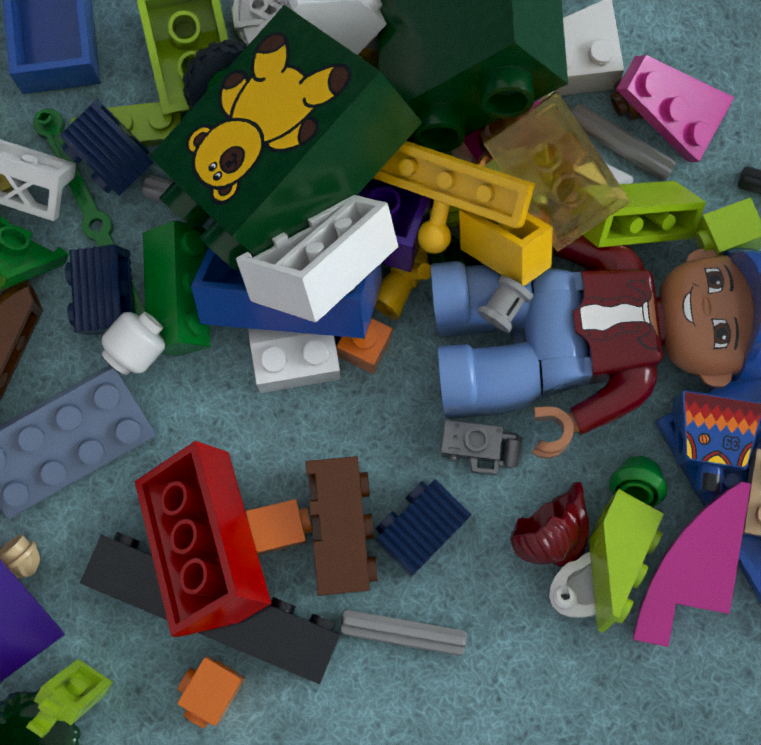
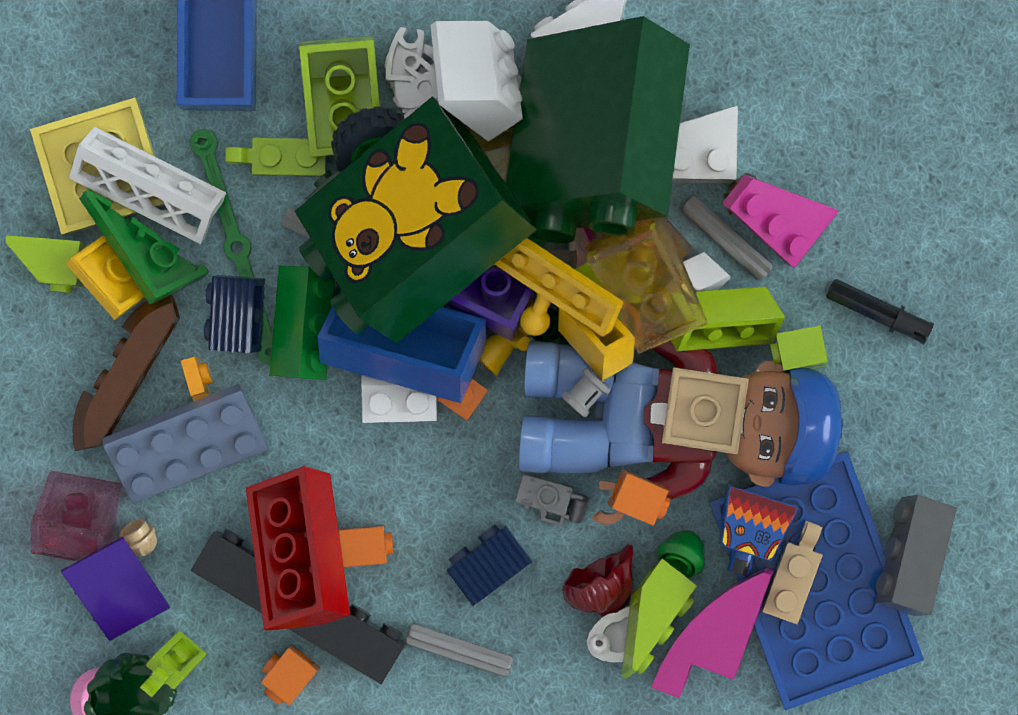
camera: 15 degrees right, 10 degrees up
(65, 364) = (197, 377): none -> light orange plate
(106, 148) = (256, 183): dark blue brick -> none
(133, 342) = (259, 370): white head -> none
(322, 262) = (432, 342): white wedge -> none
(340, 526) = (418, 555): reddish brown wedge -> none
(586, 412) = (639, 498): none -> orange brick
(645, 301) = (705, 410): none -> tan plate

